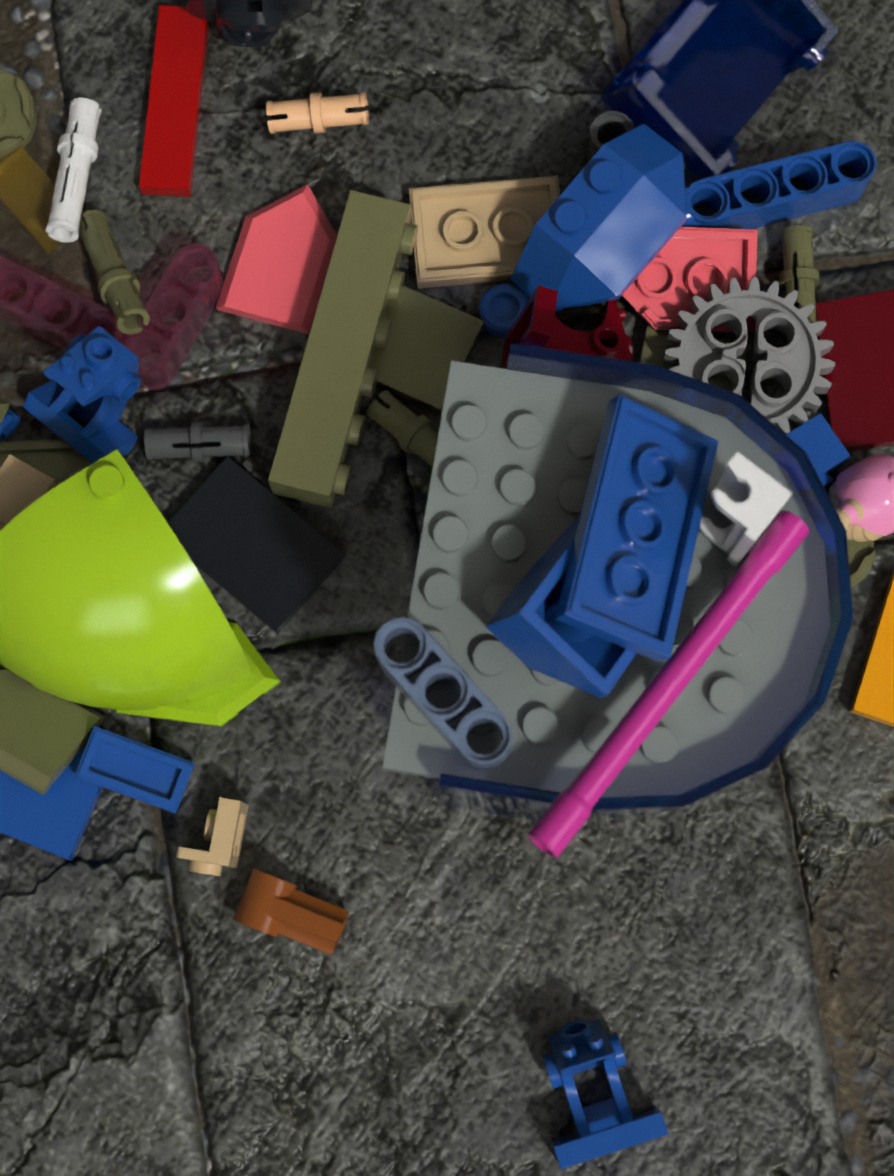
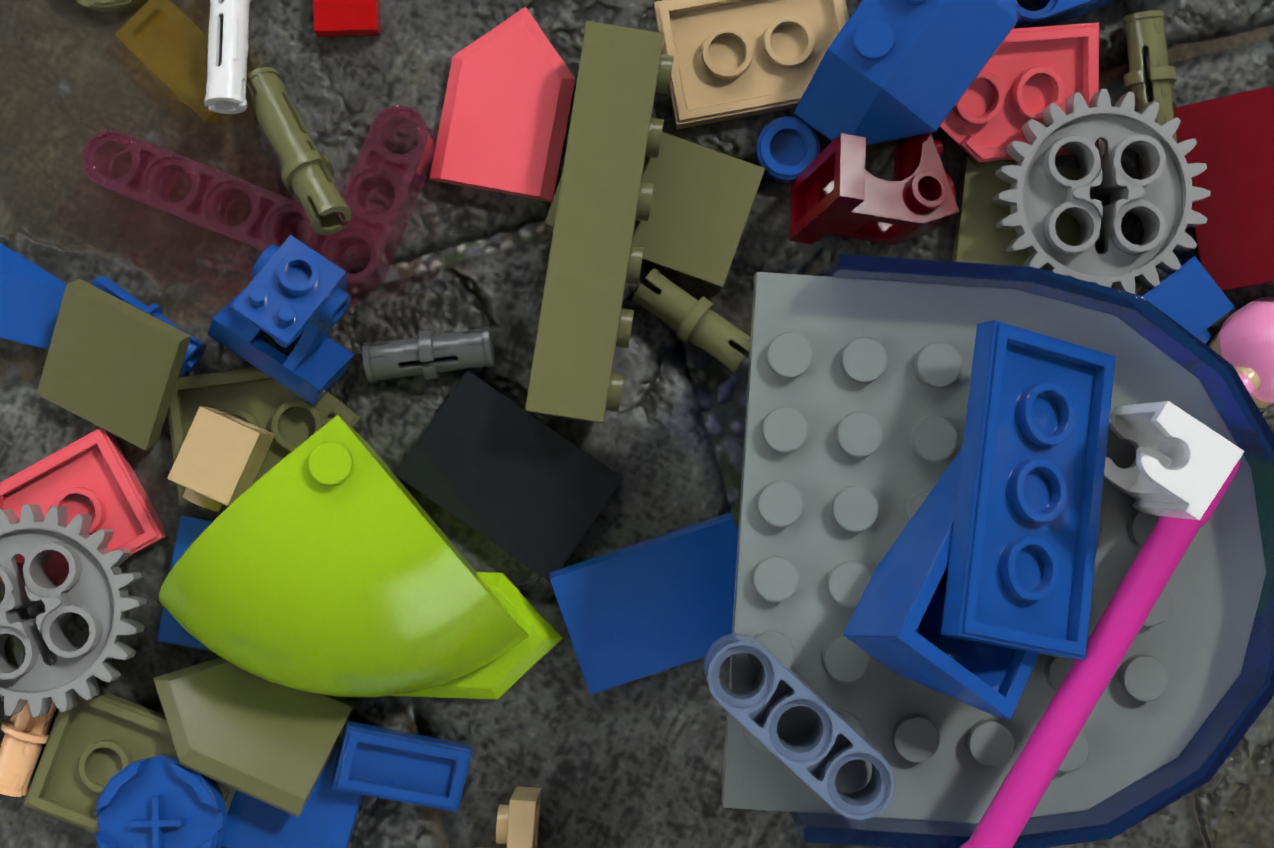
camera: 10 degrees left, 10 degrees up
(334, 660) = (650, 602): none -> blue tile

